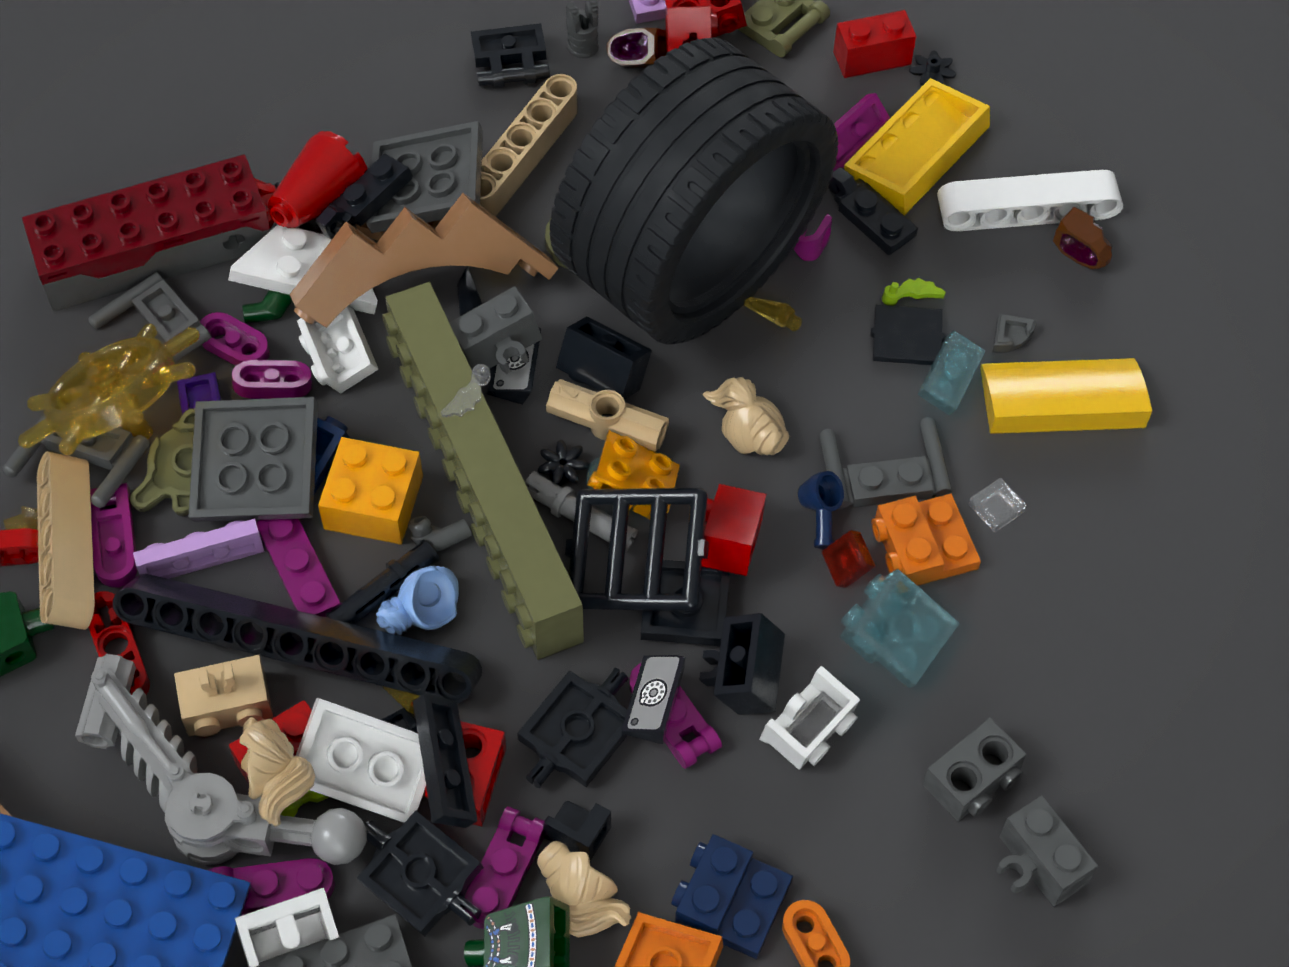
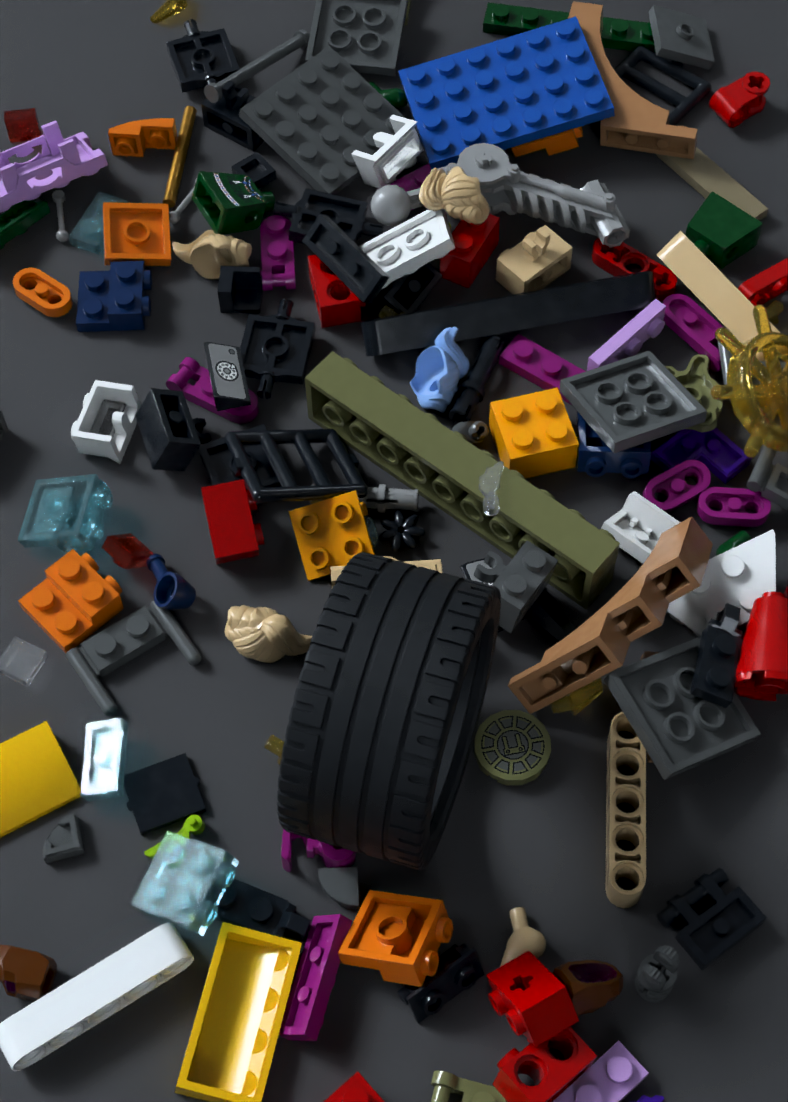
camera: 155 degrees right, 0 degrees up
(921, 237) = (186, 882): none -> clear light blue plate

